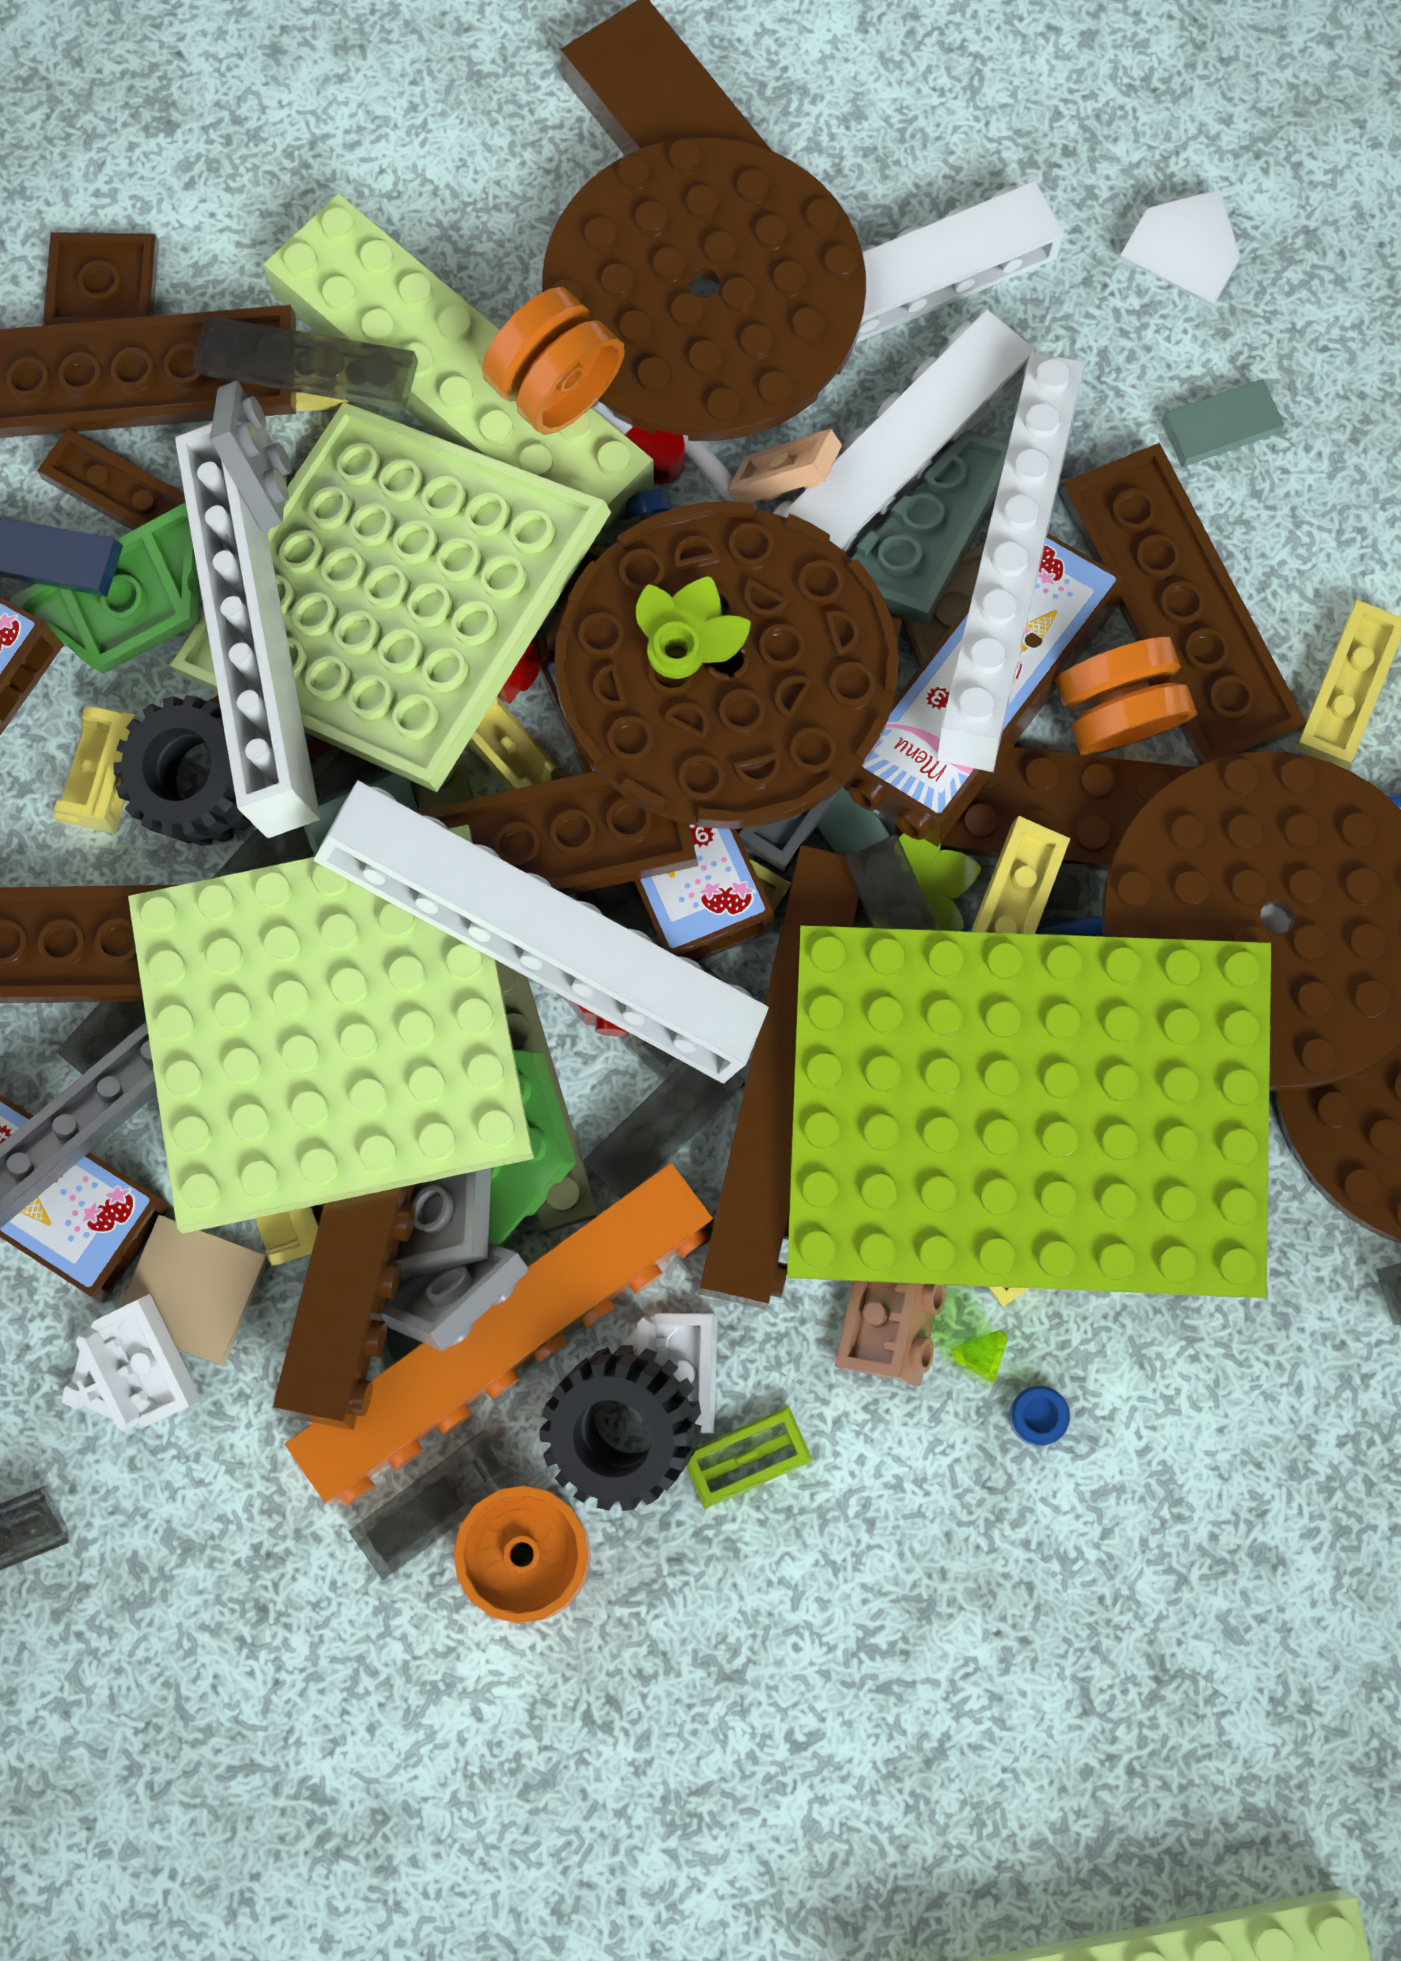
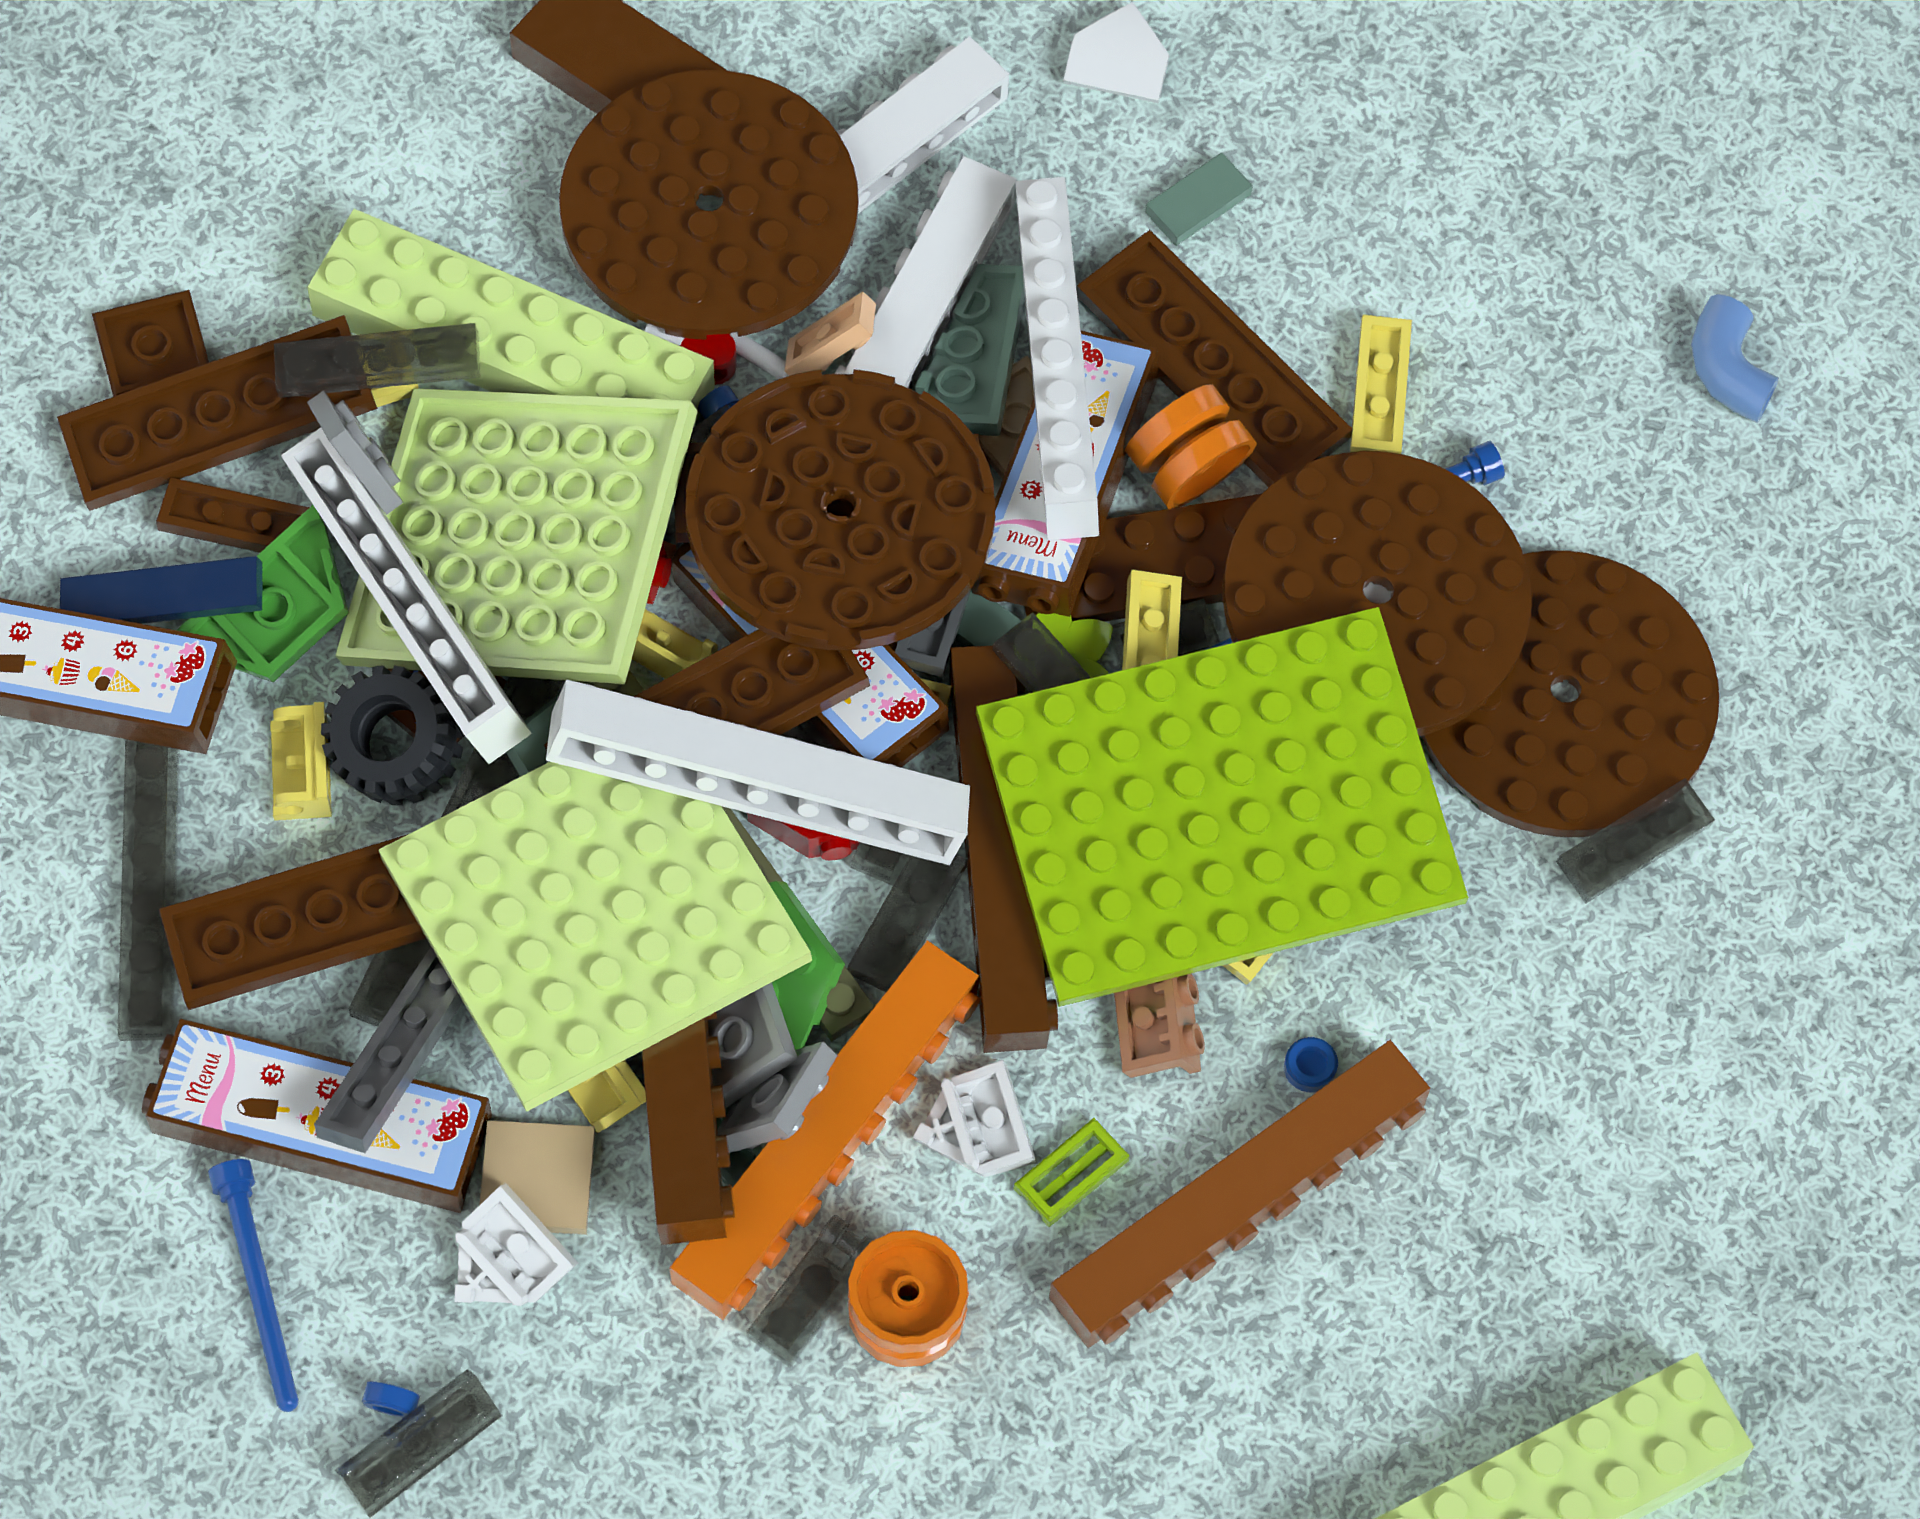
camera: 20 degrees left, 10 degrees down
(552, 360) = (606, 296): orange wheel -> none
(590, 1461) = (923, 1201): black tyre -> none
(691, 622) = (801, 481): lime plate -> none
(917, 1543) = (1240, 1194): none -> dark orange brick
(979, 1358) = (1243, 1028): clear neon green slope -> none

